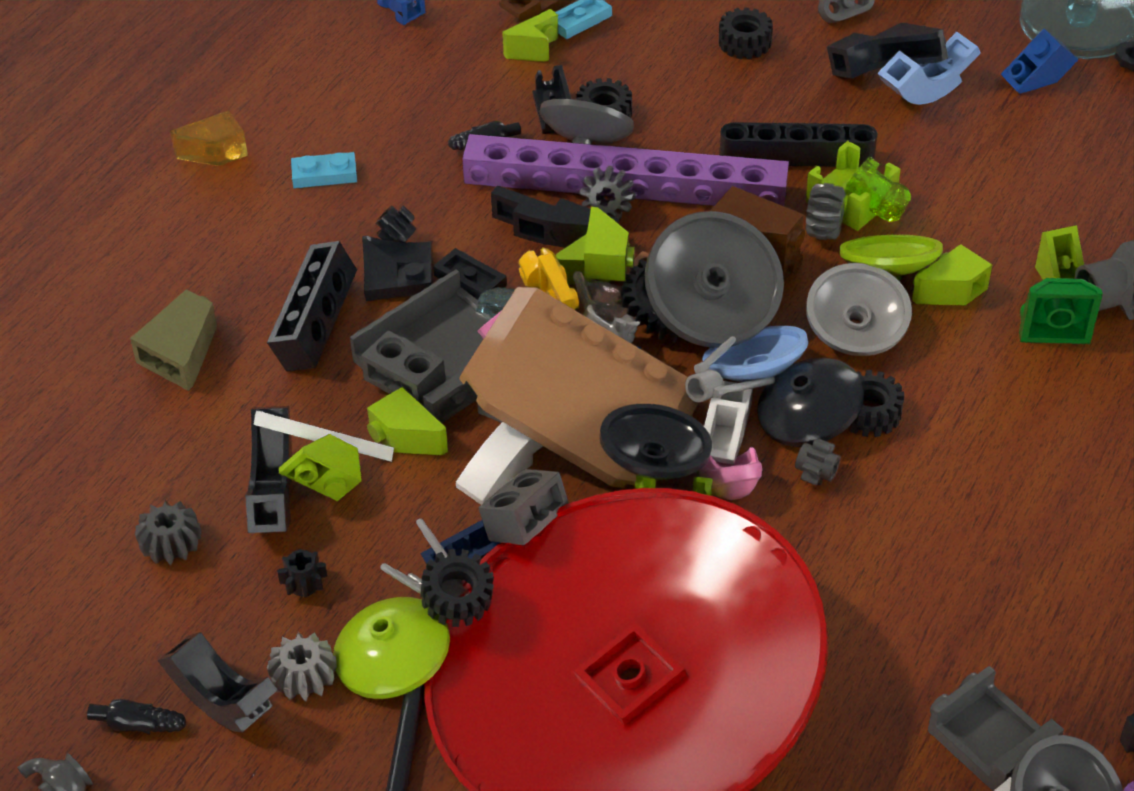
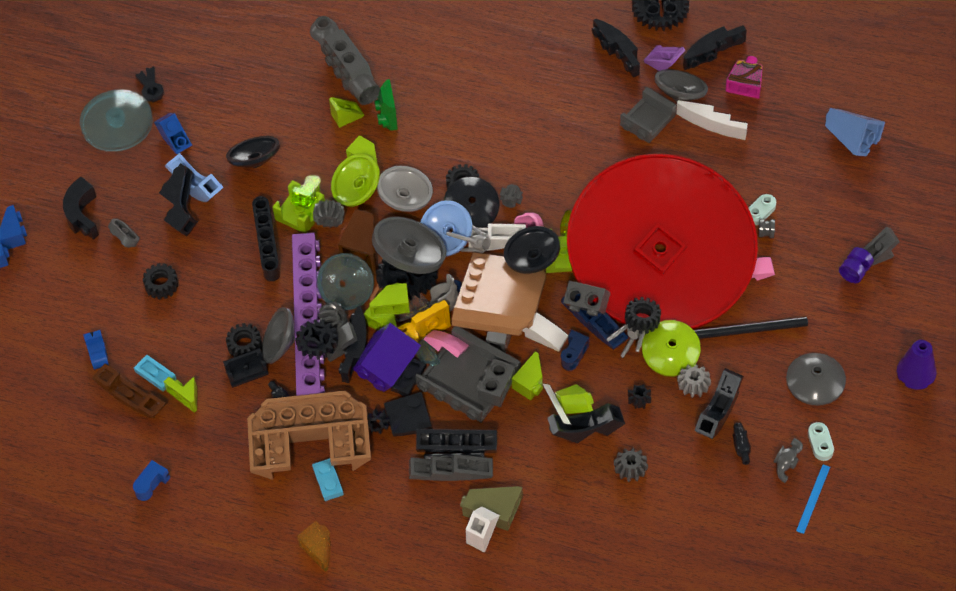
camera: 100 degrees left, 10 degrees up
(132, 300) = (481, 528): none -> white slope
(269, 301) = (451, 469): none -> dark grey slope
(429, 149) = (304, 419): none -> medium nougat slope
(440, 499) = (576, 349): none -> dark blue leg
(500, 231) = (386, 357): none -> dark purple slope
(558, 154) = (316, 339): none -> black gear
(561, 194) = (346, 337): none -> dark grey slope
(669, 199) = (353, 272): none -> clear light blue dish
(977, 139) = (253, 152): none -> black dish

